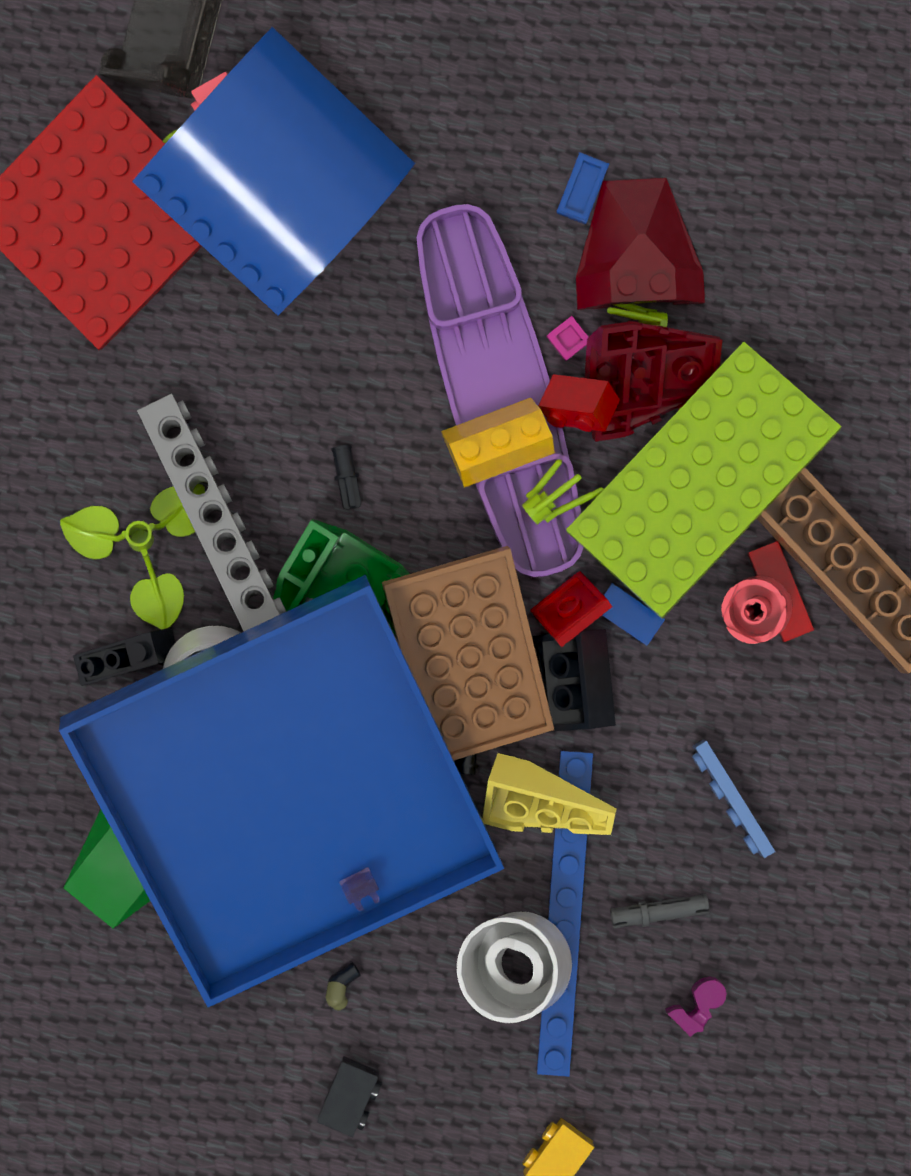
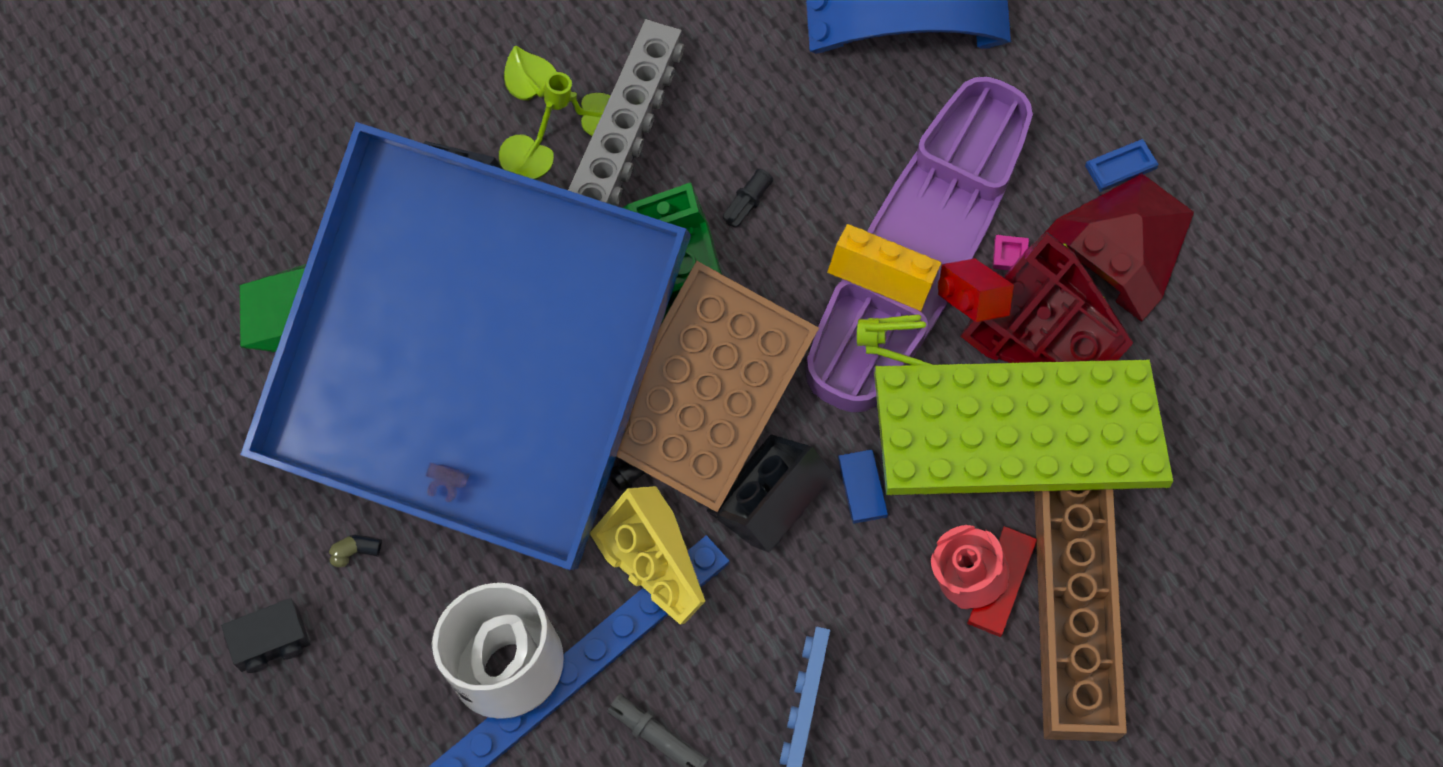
camera: 45 degrees right, 20 degrees down
(571, 608) = (821, 431): red tile -> none

